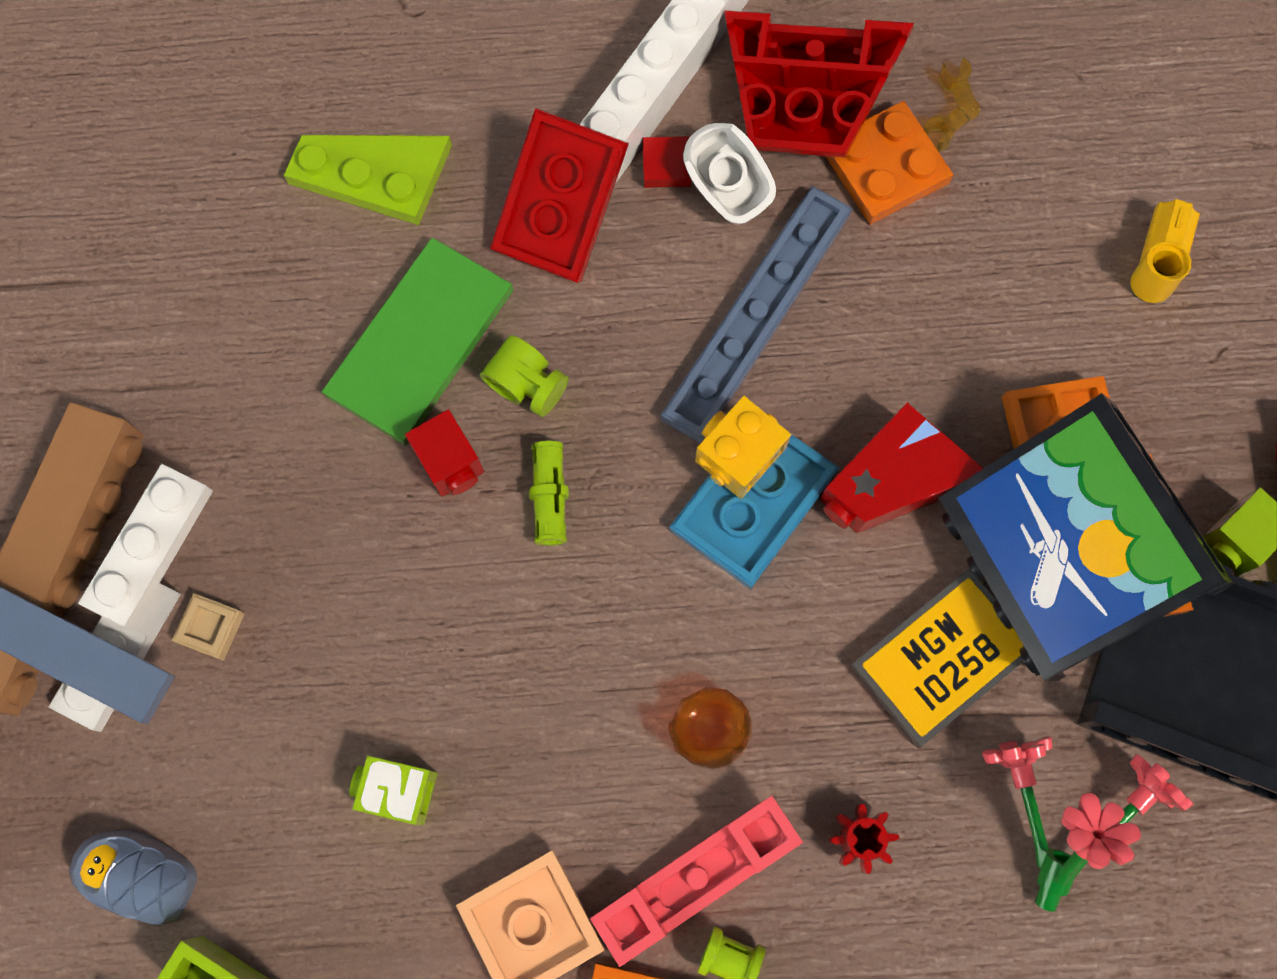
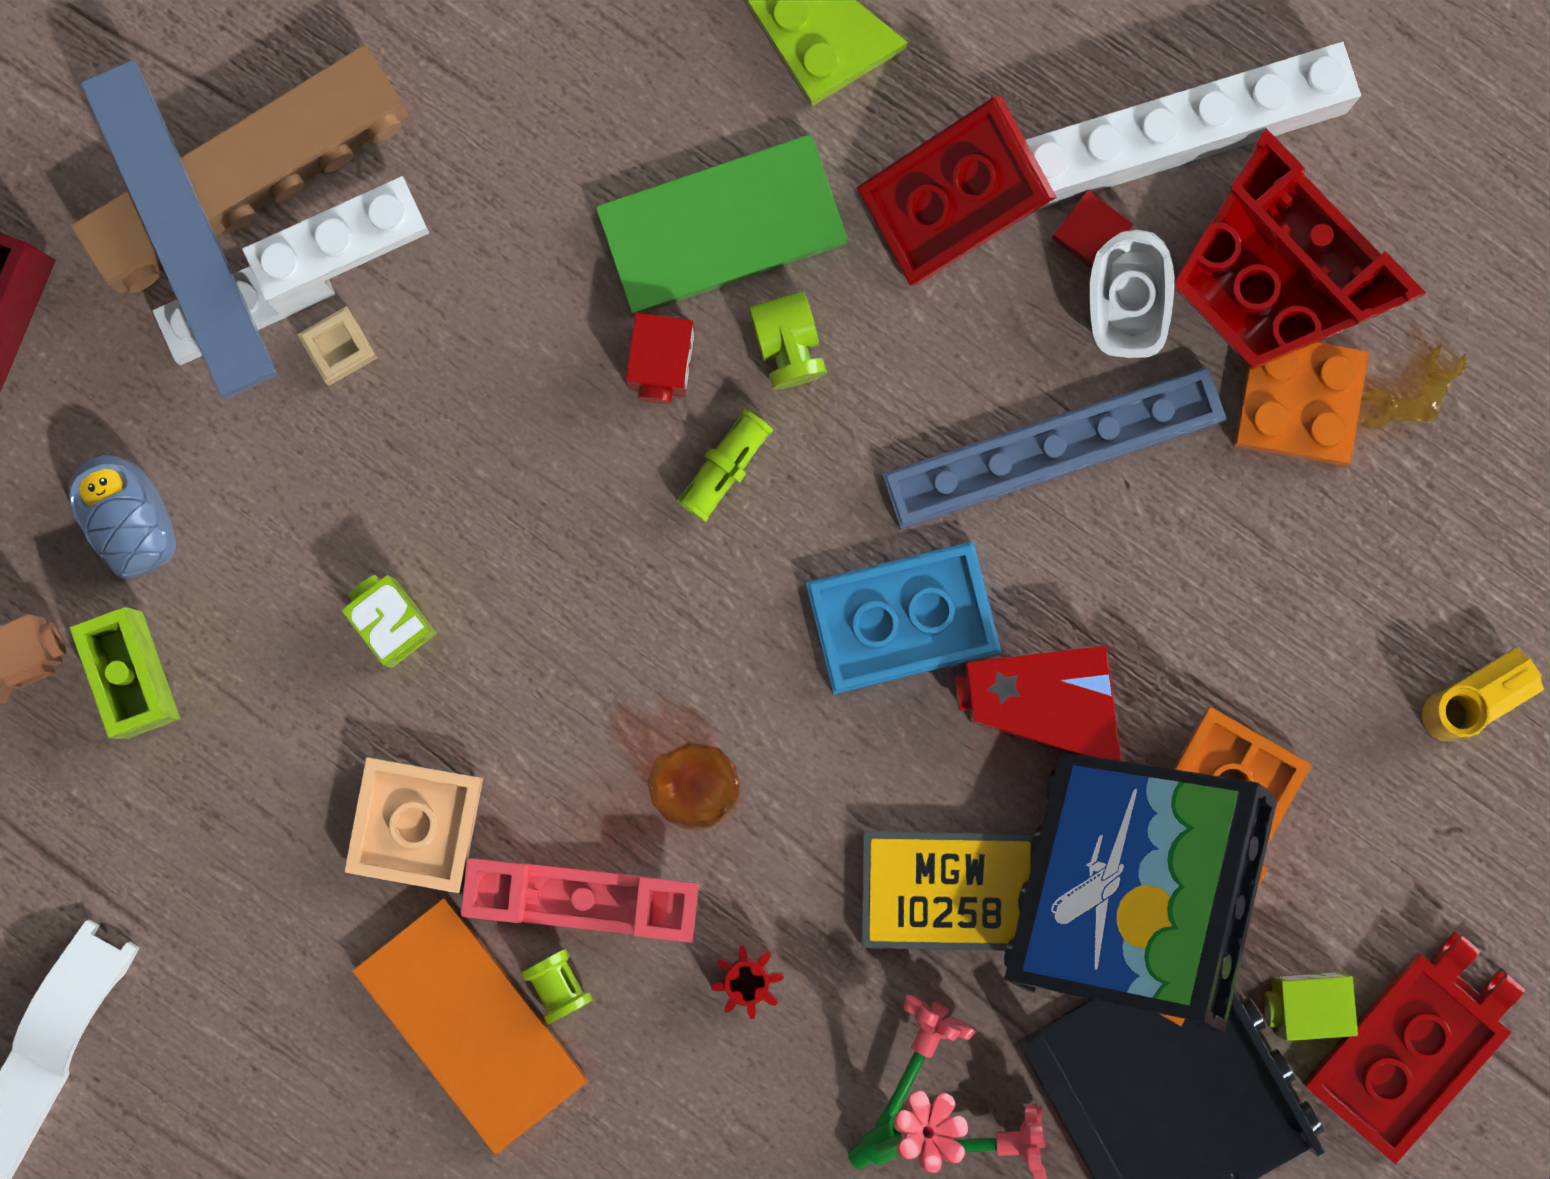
camera: 40 degrees right, 10 degrees up
(741, 446) = (924, 564): yellow head -> none

